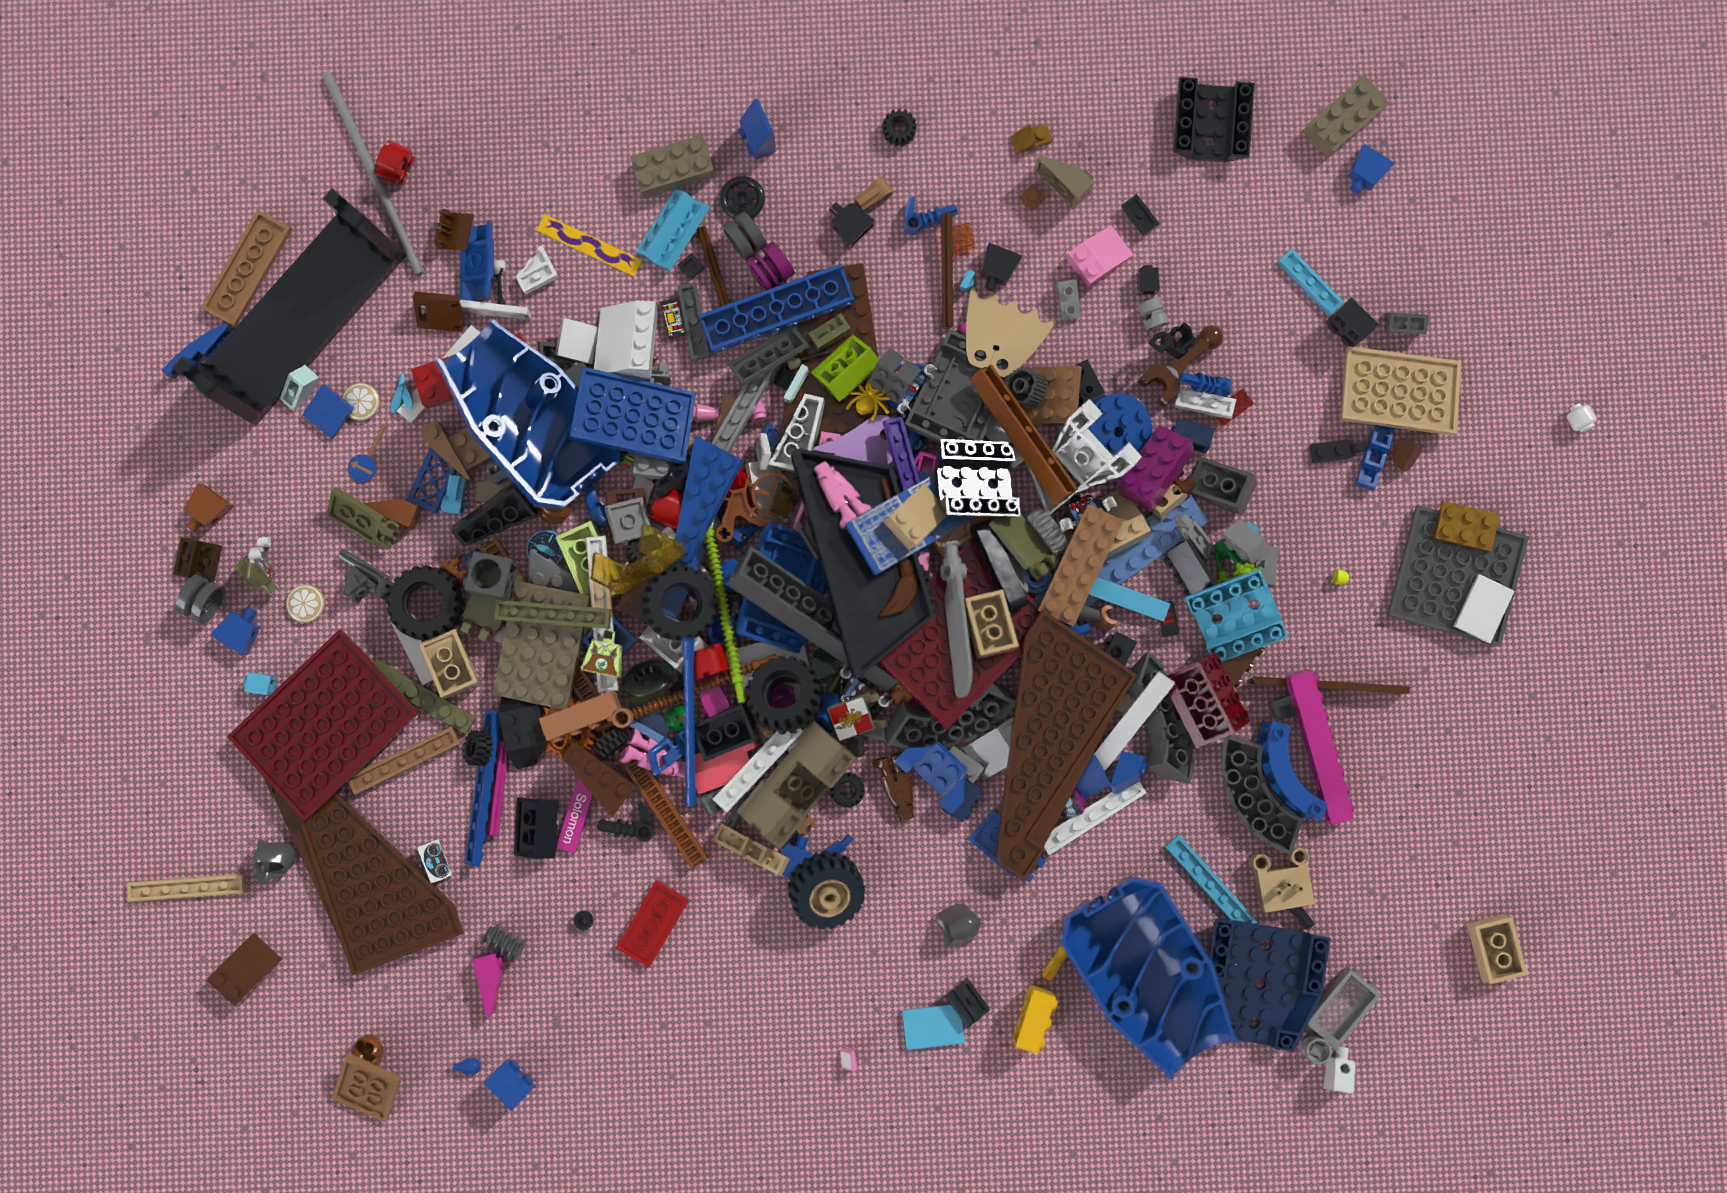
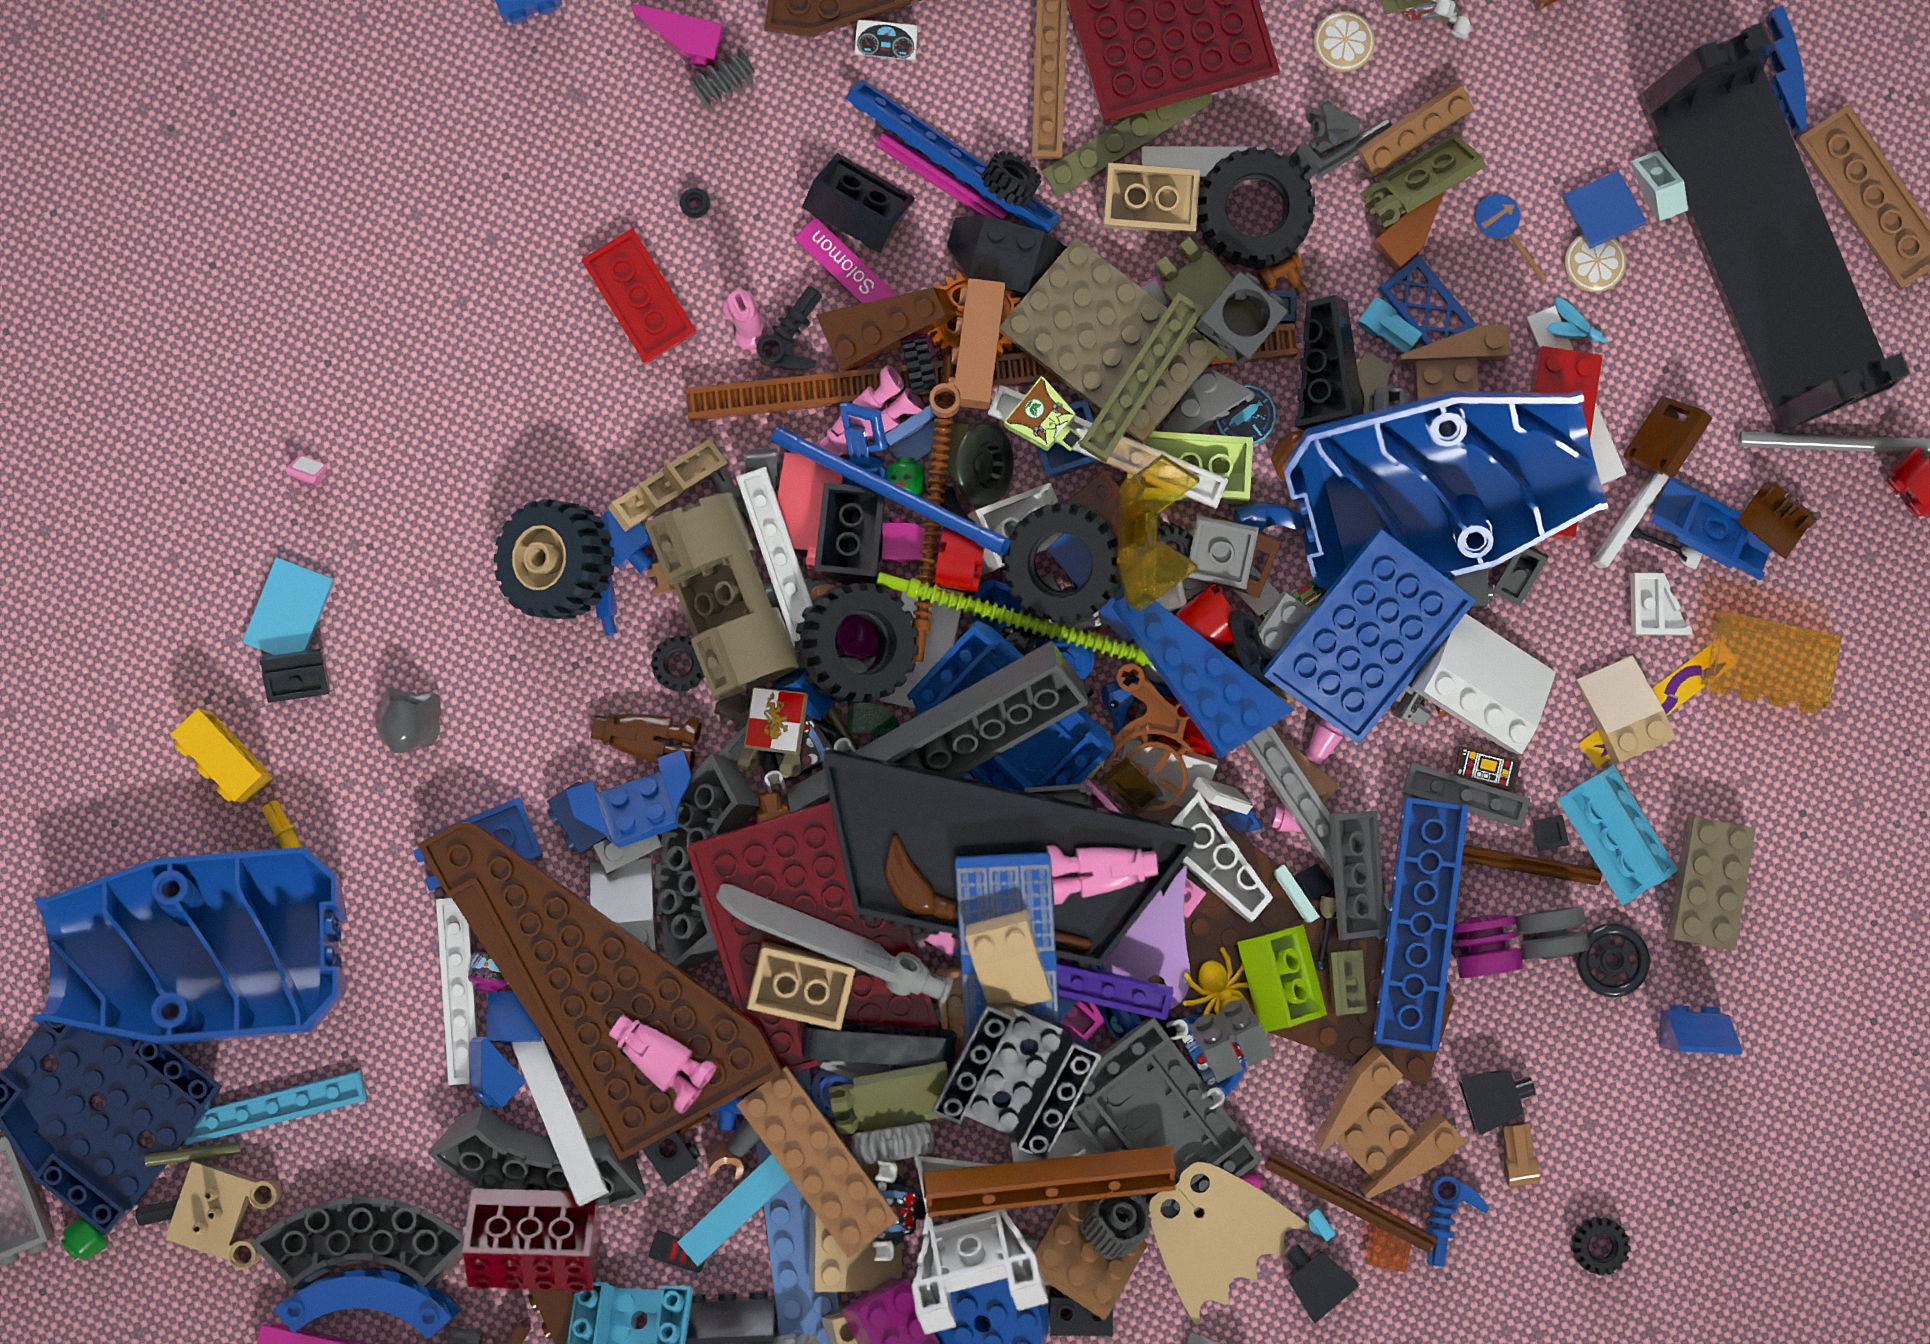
camera: 120 degrees right, 0 degrees up
(335, 537) = (1415, 129): none -> medium nougat plate
(534, 194) = (1772, 662): none -> clear yellow panel
(577, 341) = (1522, 612): white tile -> none
(602, 259) = (1625, 710): none -> tan slope
(633, 855) = (748, 321): none -> bright pink piece
(903, 274) = (1377, 1134): none -> medium nougat wedge
(1071, 679) = (662, 1060): none -> bright pink piece
(1260, 915) = (192, 1154): none -> olive bar
(1339, 949) = (83, 1239): none -> green head

